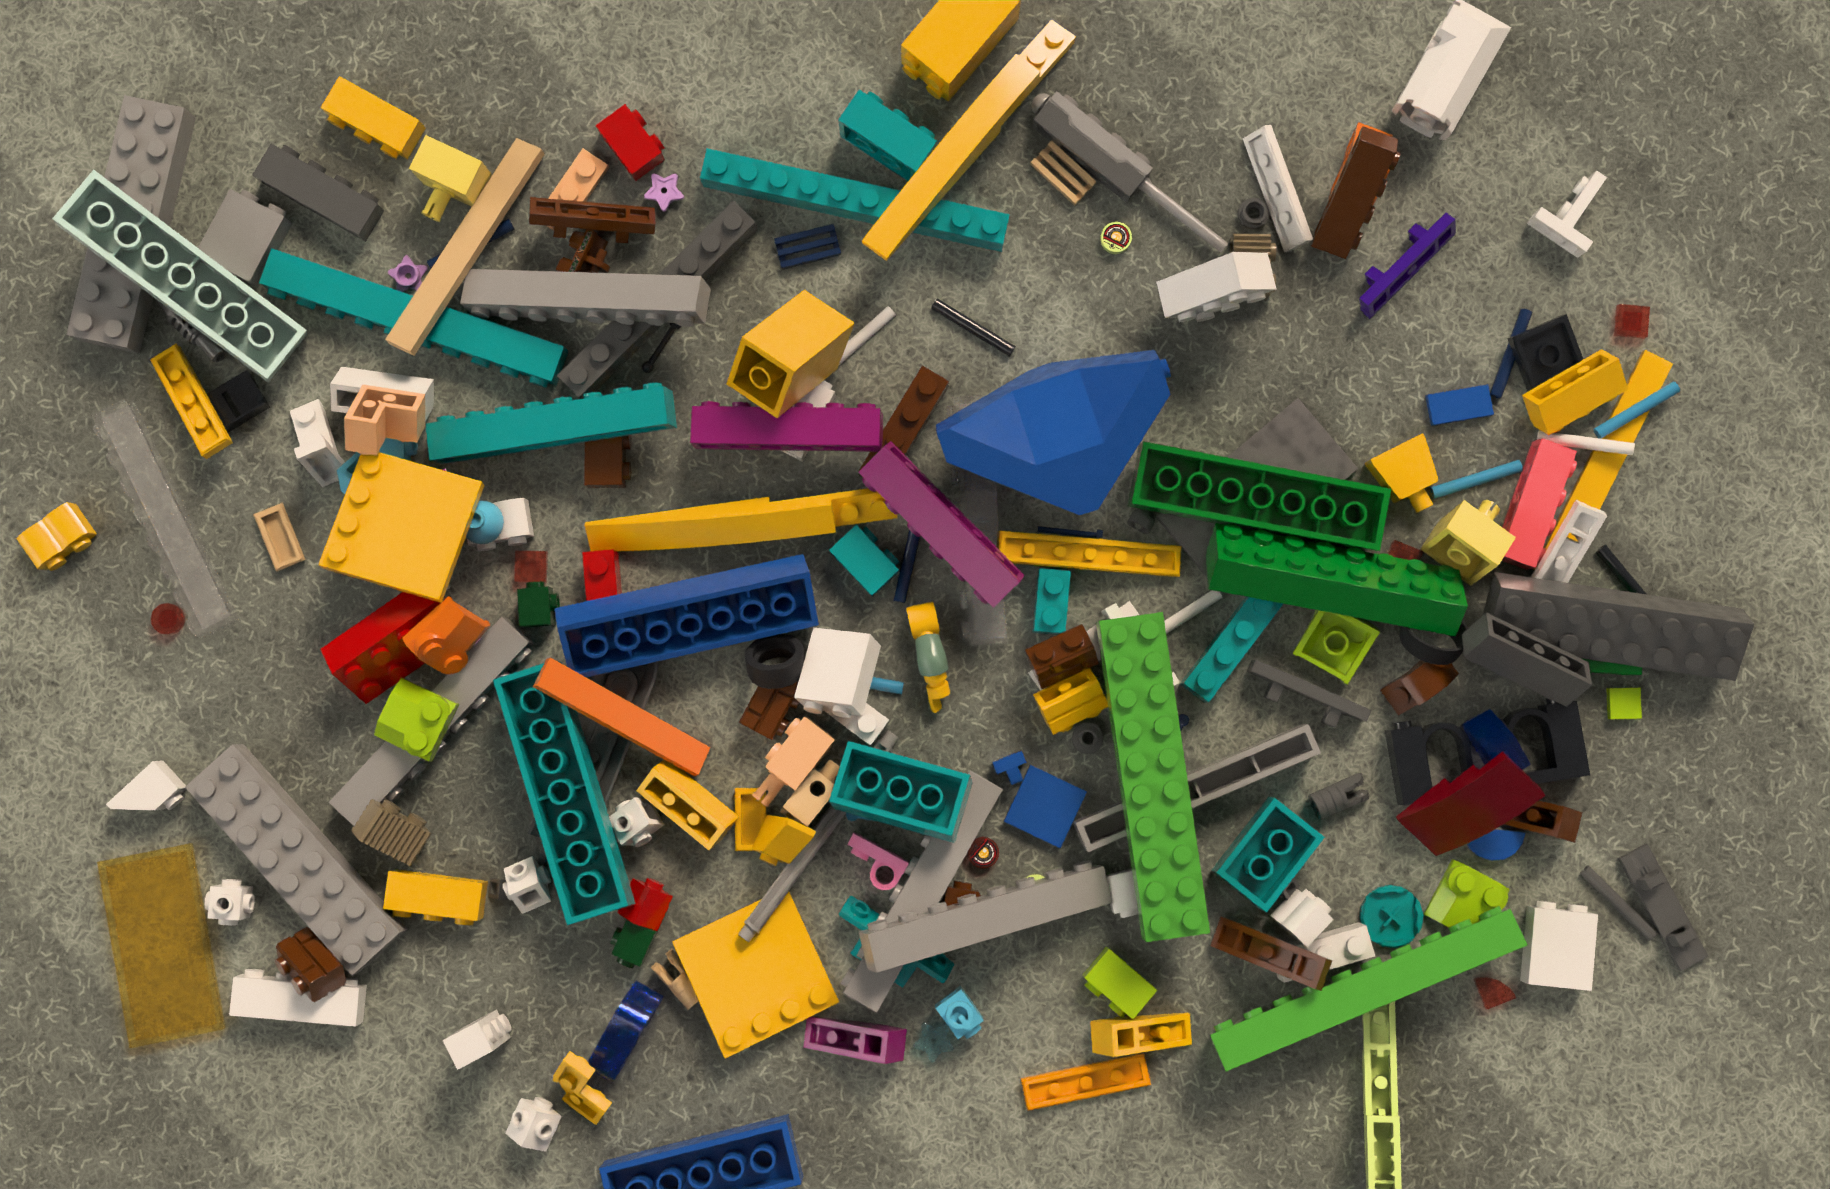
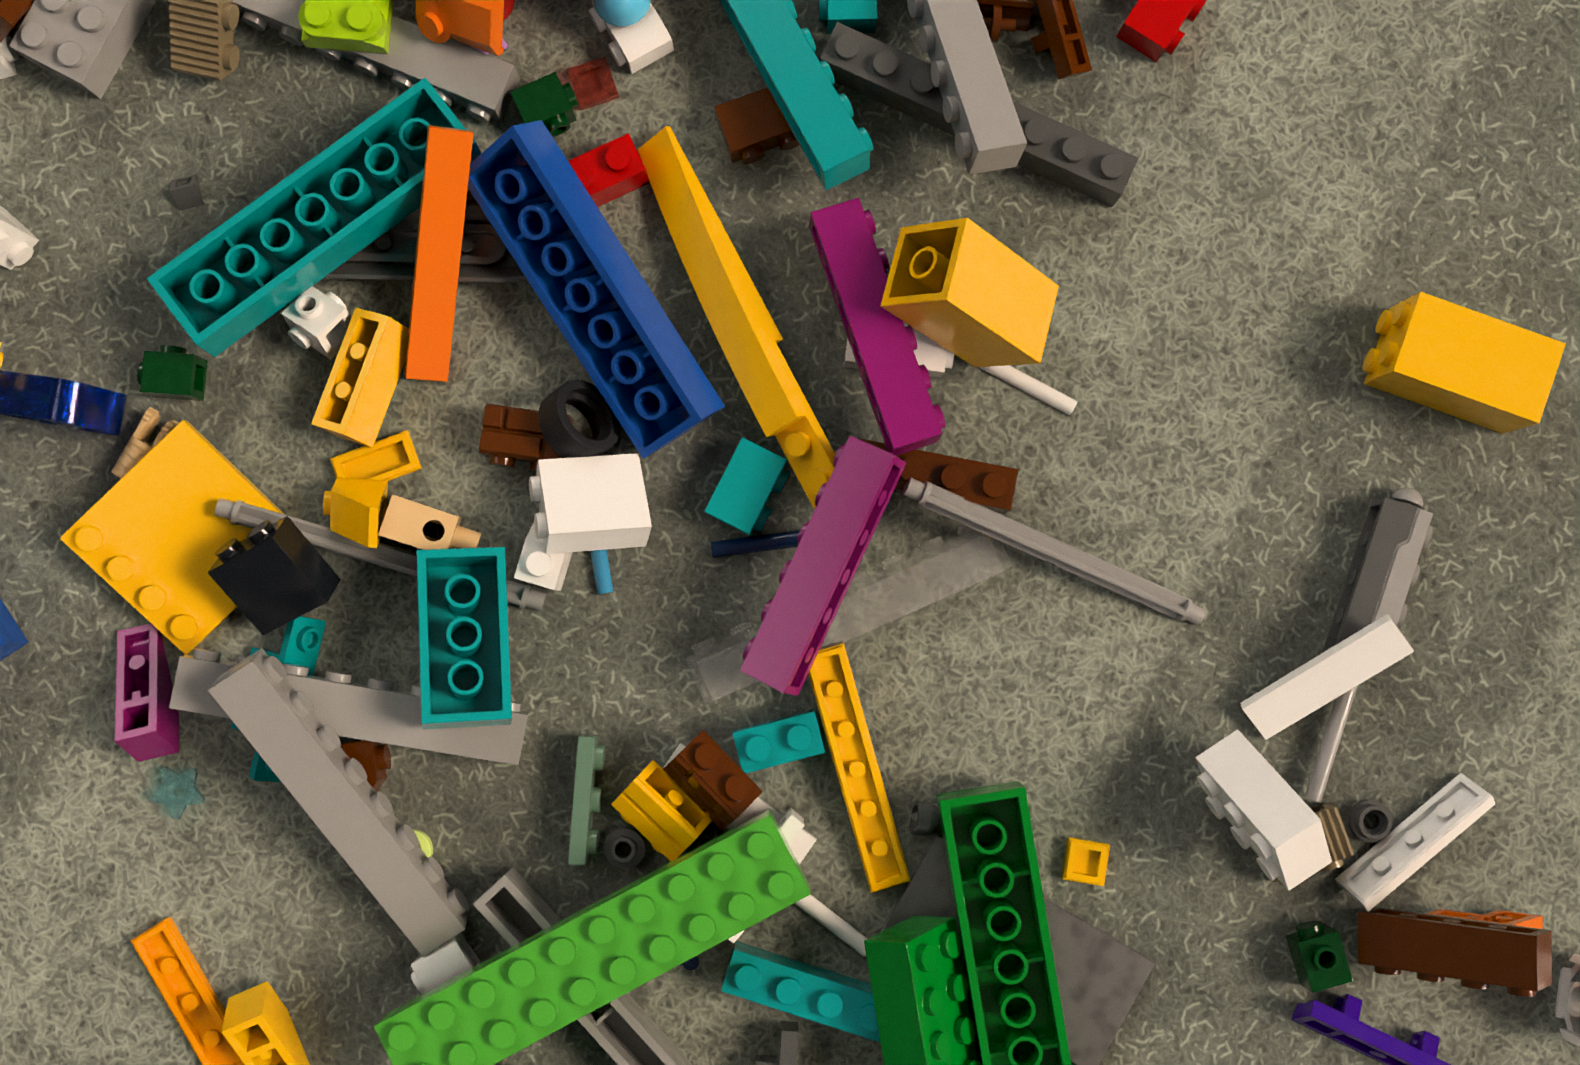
camera: 65 degrees right, 0 degrees up
(435, 896) = (147, 114): yellow brick -> none
(522, 880) = (193, 215): white brick -> none
(648, 366) = (892, 135): black hinge -> none
(649, 905) = (225, 376): red brick -> none
(658, 184) = (1114, 84): lavender plate -> none
(785, 264) = (1127, 265): dark blue tile -> none
(795, 758) = (465, 490): light nougat brick -> none
(807, 913) = (273, 574): none -> black brick
(846, 198) = (1196, 311): teal brick -> none
(864, 848) = (387, 620): bright pink plate -> none
(886, 134) = (1293, 321): teal brick -> none
(929, 652) = (660, 609): piece -> none
(960, 1013) = (219, 811): medium azure brick -> none
(967, 139) = (1327, 422): yellow slope -> none
(973, 327) = (1093, 505): black bar -> none
(983, 852) = (434, 769): tile -> none
(988, 361) = (1053, 550): none -> light grey piece
(1010, 766) = (554, 762): blue tile -> none
(1044, 154) = (1344, 566): tan tile -> none
(1044, 751) = (586, 799): none -> sand green plate
(1045, 806) = (519, 825): blue tile -> none
(1061, 427) = (1004, 675): blue panel -> none
(1098, 535) = (885, 769): dark blue piece -> none
(1116, 237) = (1272, 656): tile -> none
(1118, 983) = (327, 1000): lime brick -> none
(1143, 207) = (1327, 676): none -> white tile
(1211, 419) = (1085, 861): none -> yellow tile
(1332, 284) = (1318, 956): none -> dark green brick

